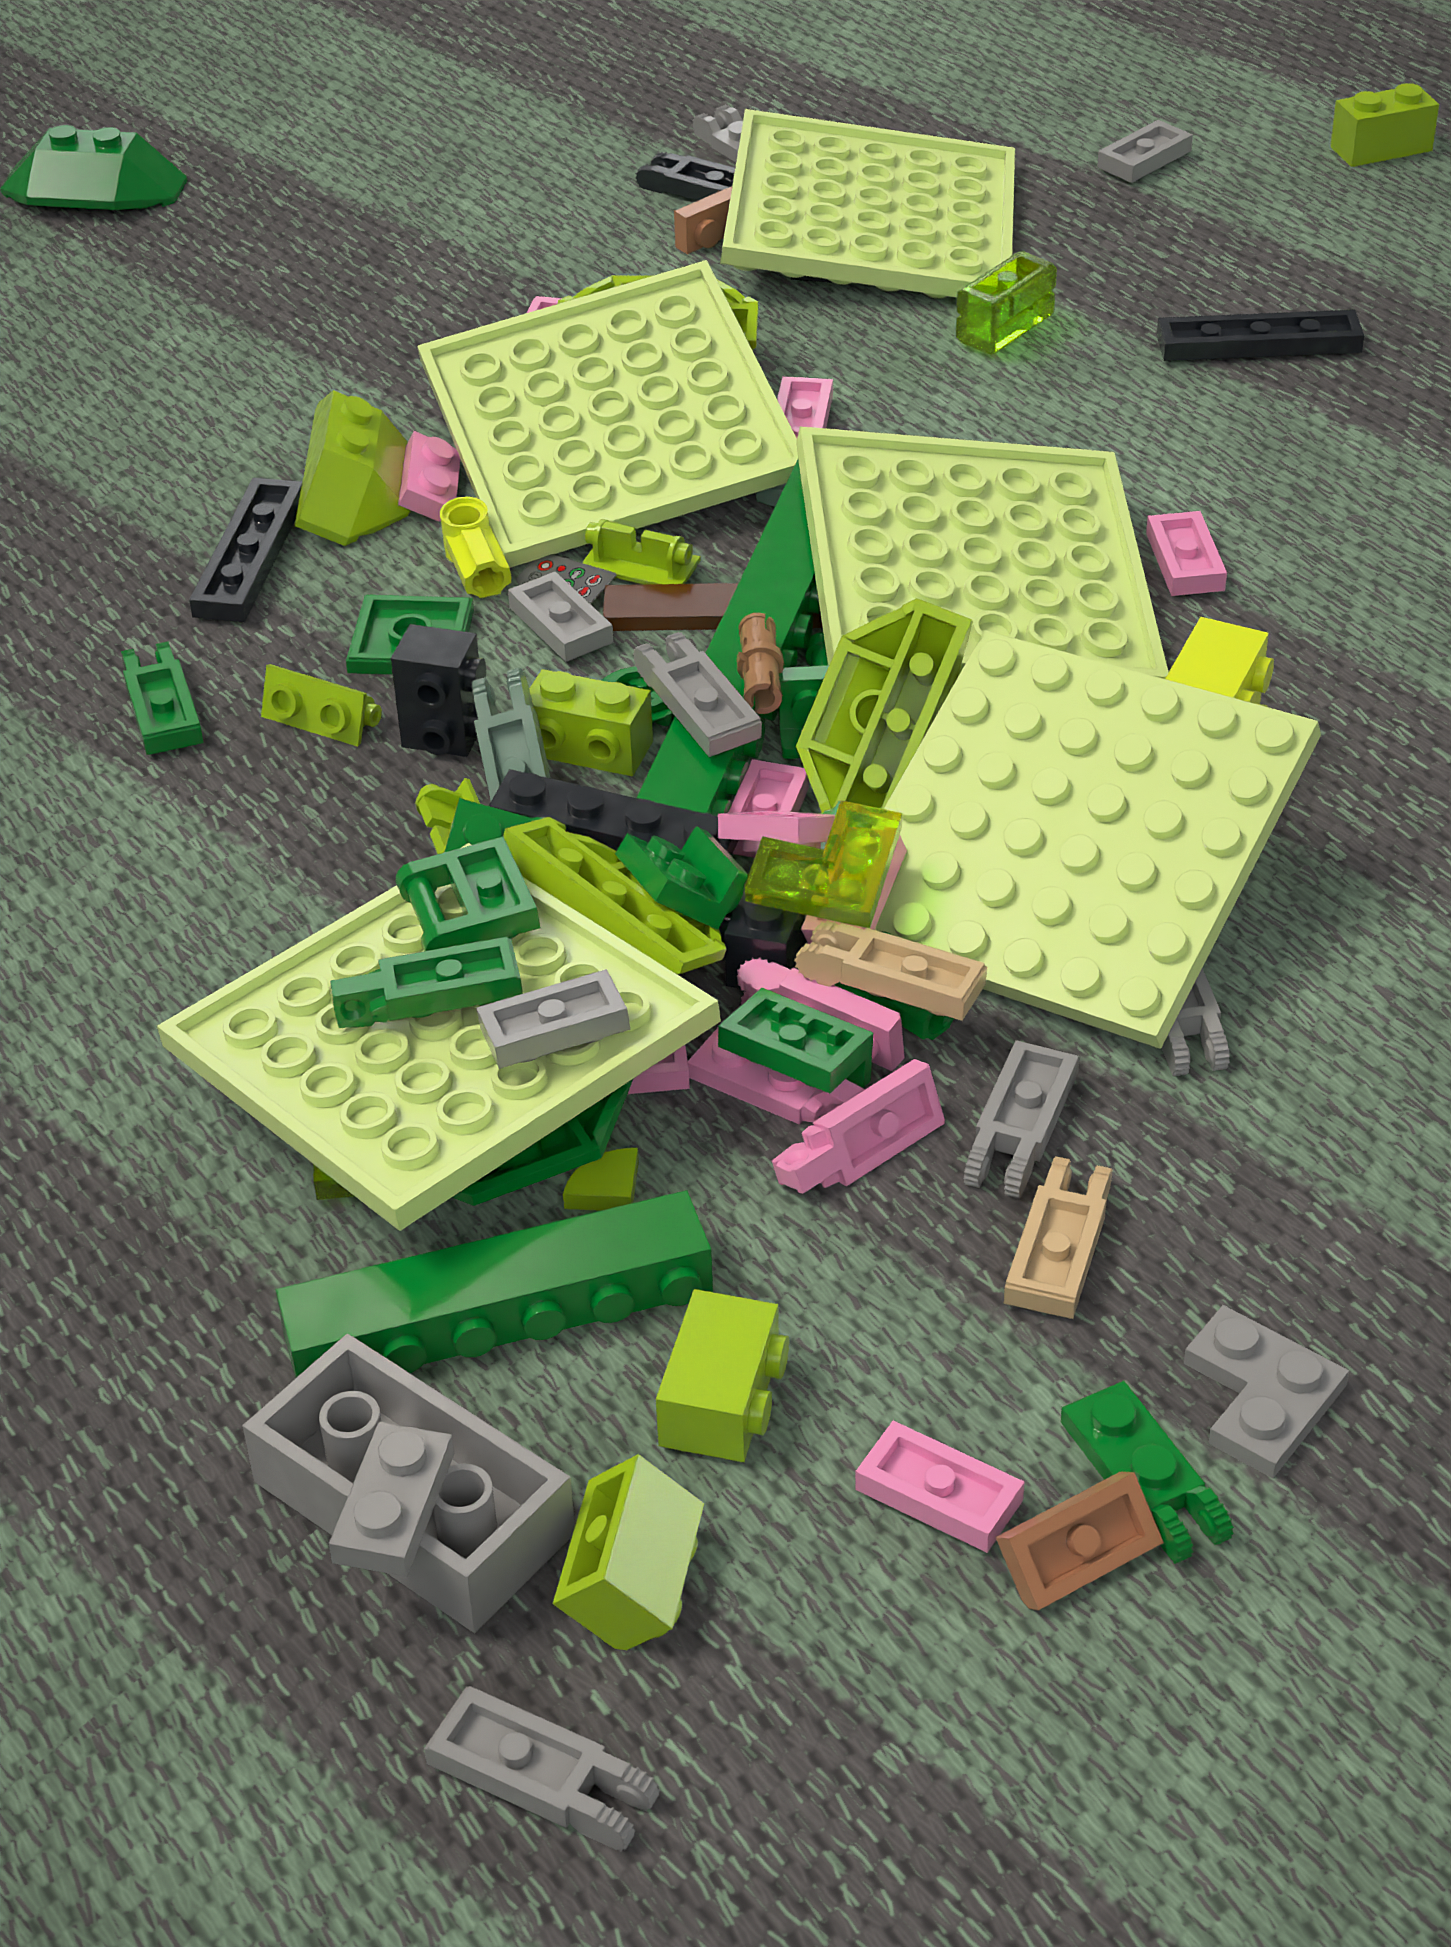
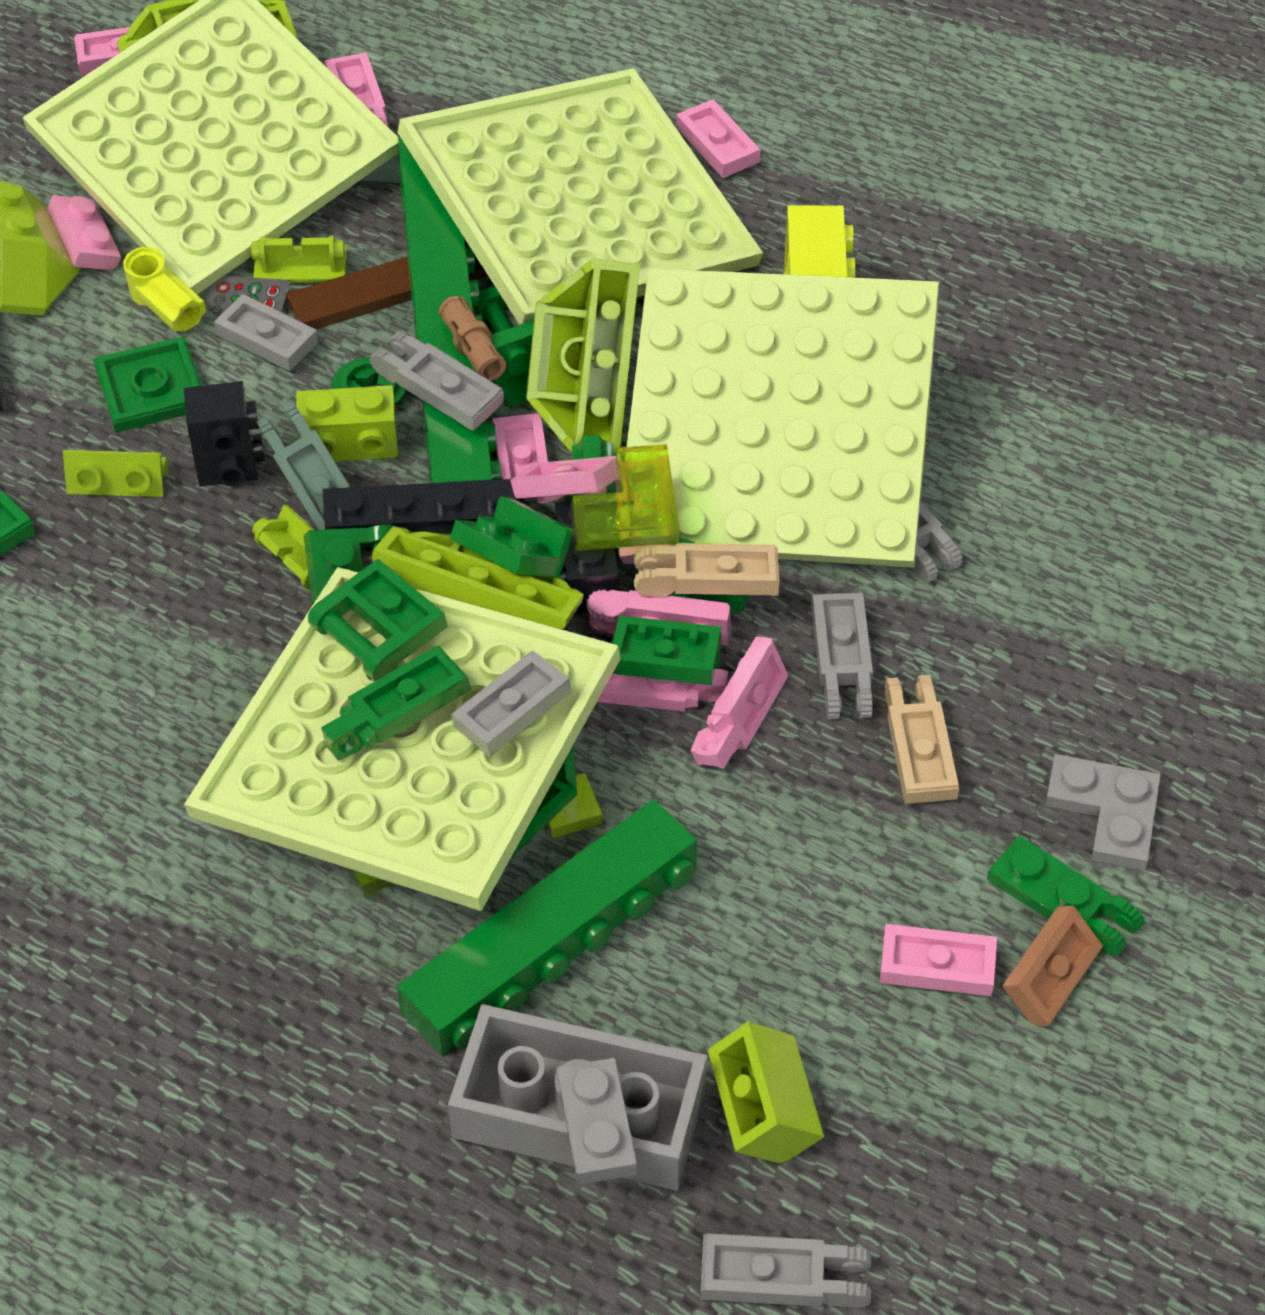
camera: 25 degrees left, 10 degrees up
(720, 1376) = (751, 933): lime brick -> none

